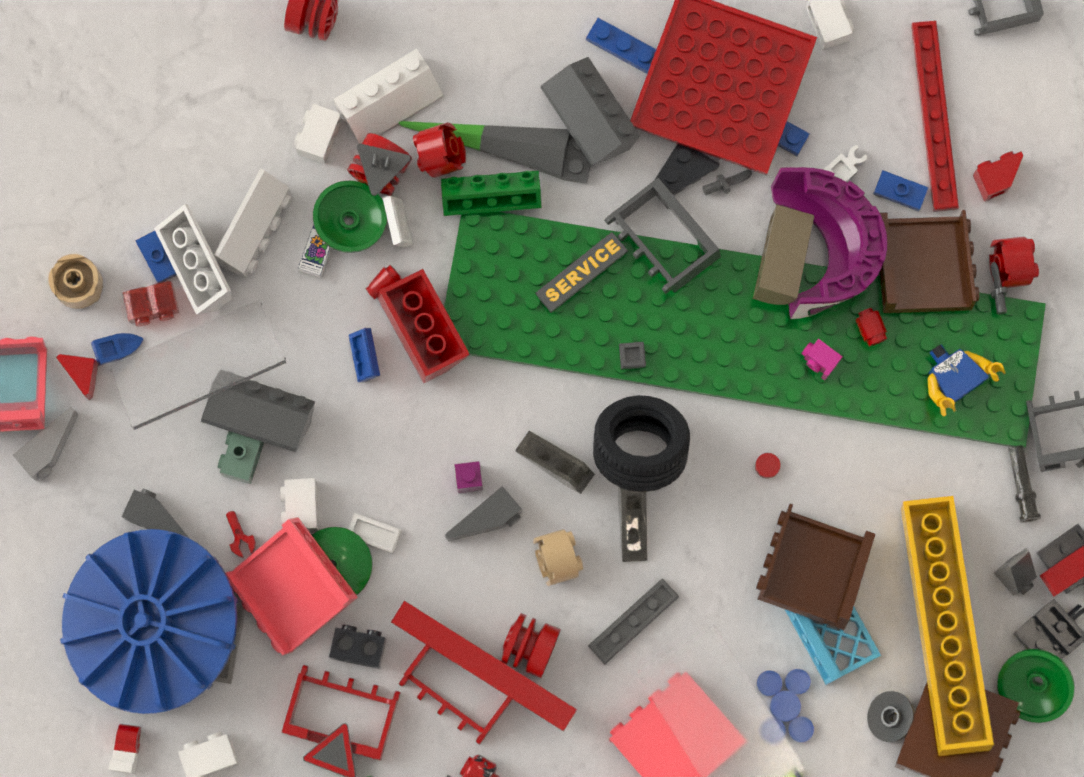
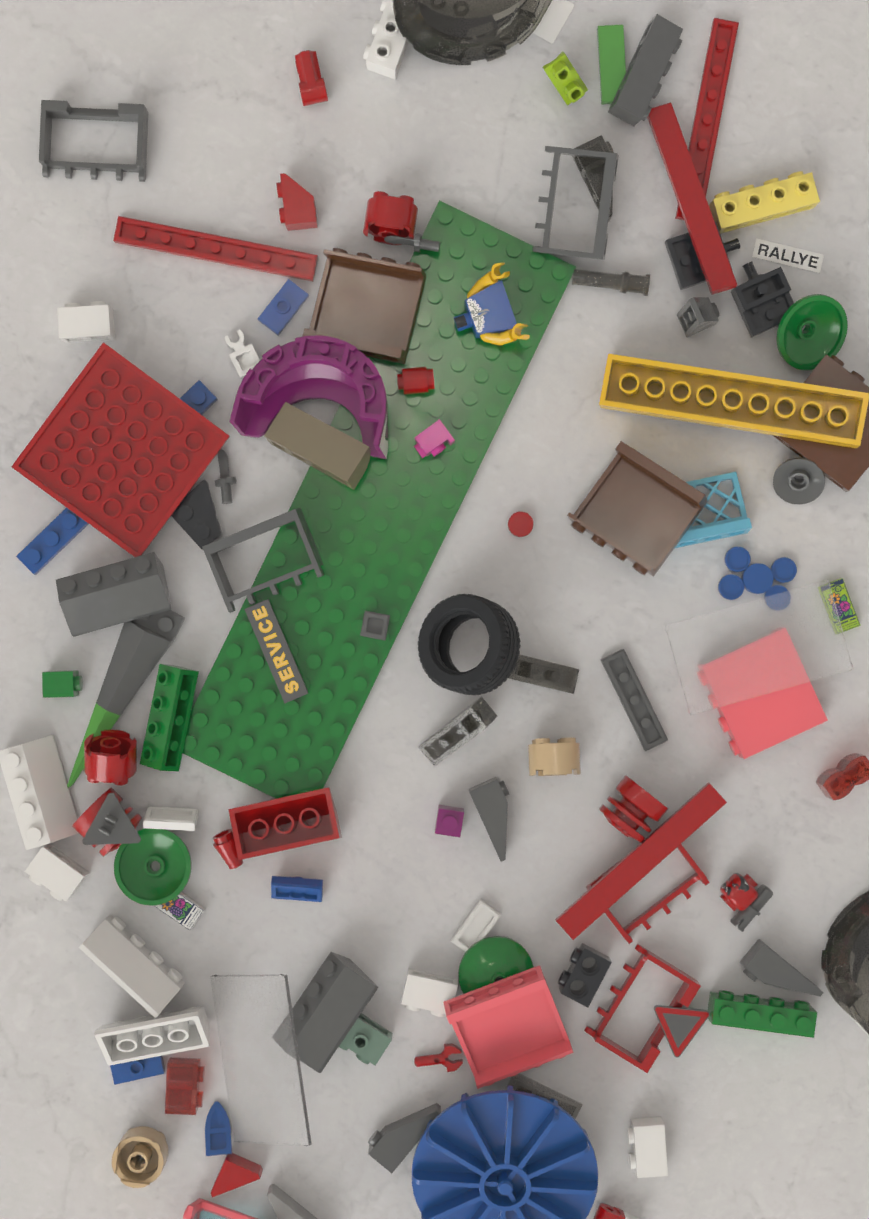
camera: 70 degrees left, 10 degrees up
(493, 89) = (61, 683): none -> green brick

